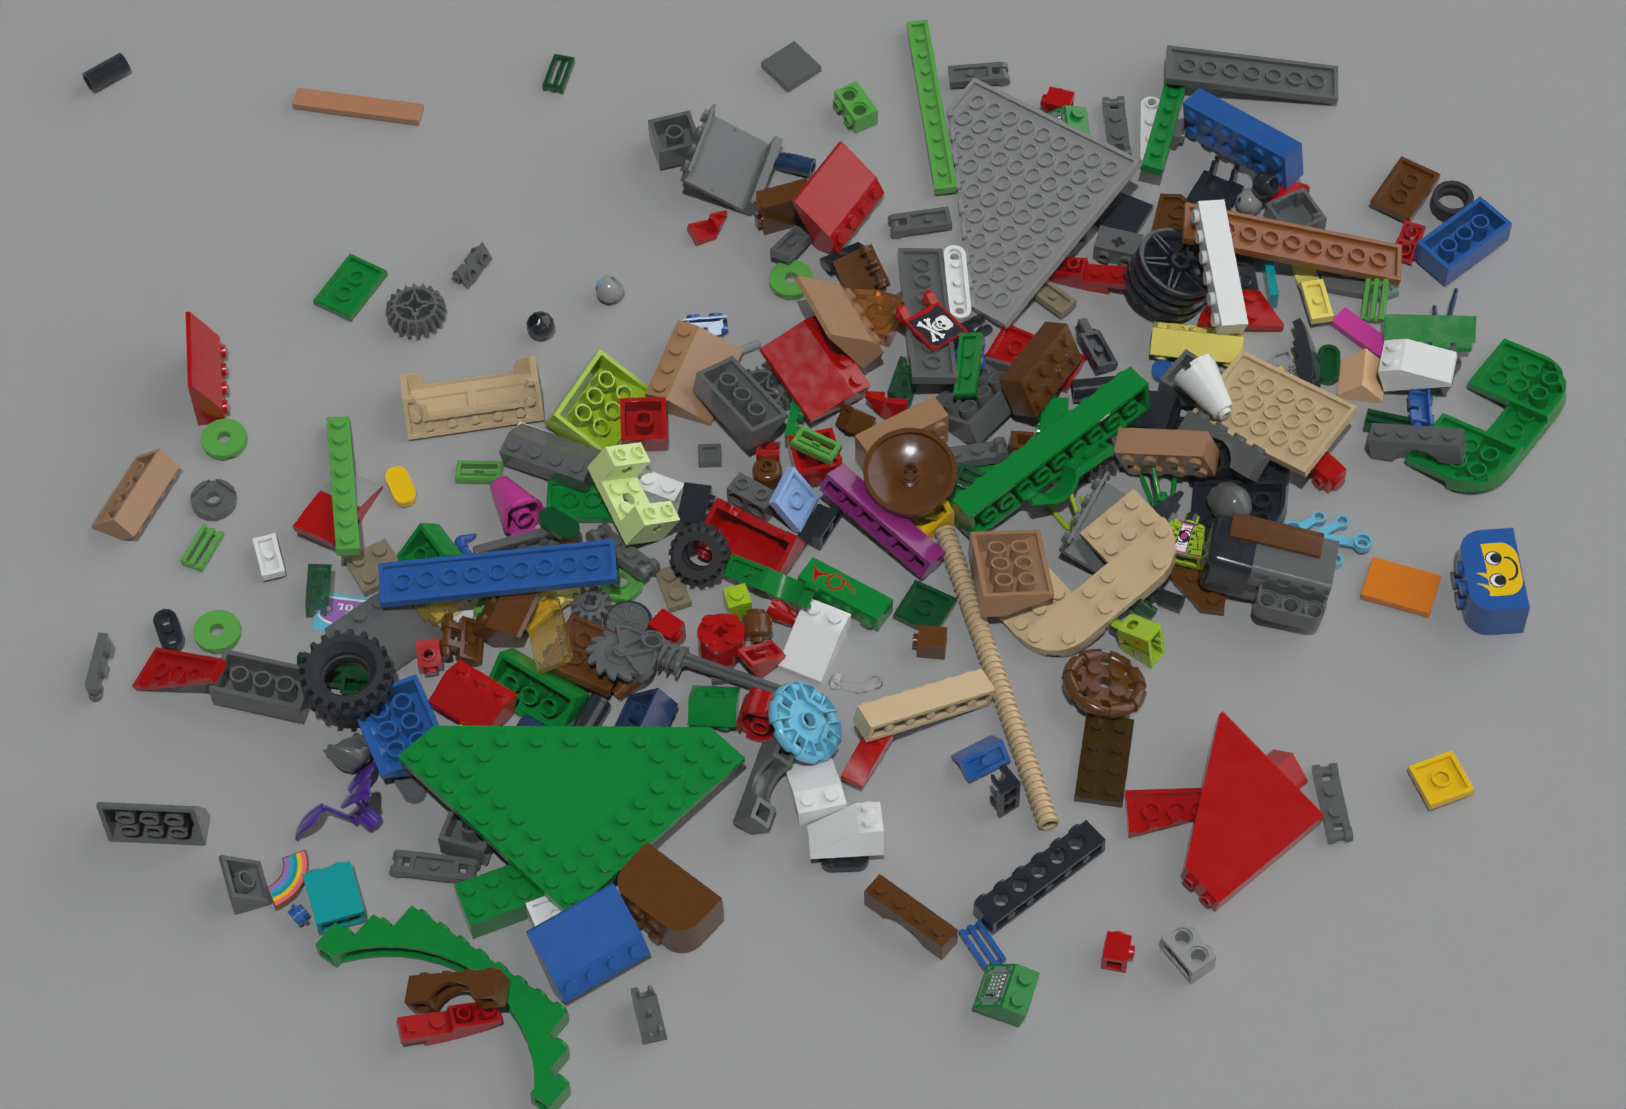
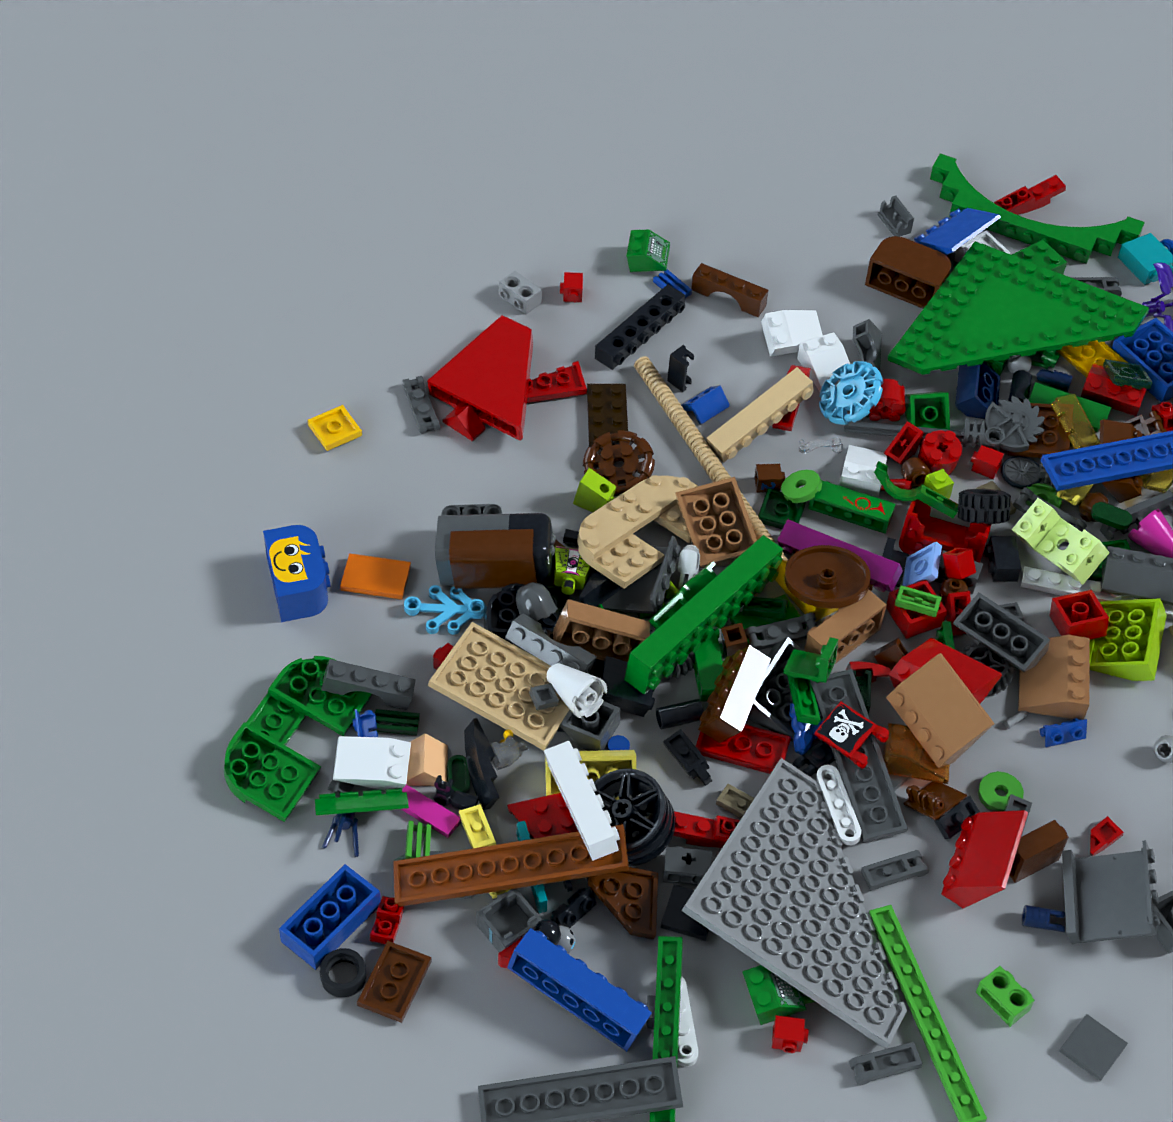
camera: 165 degrees right, 5 degrees down
(429, 991) = (1016, 200): reddish brown arch -> none
(460, 690) = (1127, 374): none -> clear green plate
(756, 480) = (959, 563): none -> red panel
(908, 604) = (791, 485): none -> bright green tile
(954, 383) = (812, 665): none -> green bracket
(1053, 531) = (688, 563): none -> white arm
(1116, 123) = (718, 1018): dark grey plate -> none
(1215, 188) = (599, 948): black plate -> none
(1238, 387) = (543, 696): none -> dark grey plate
(1342, 339) = (446, 795): none -> black bar

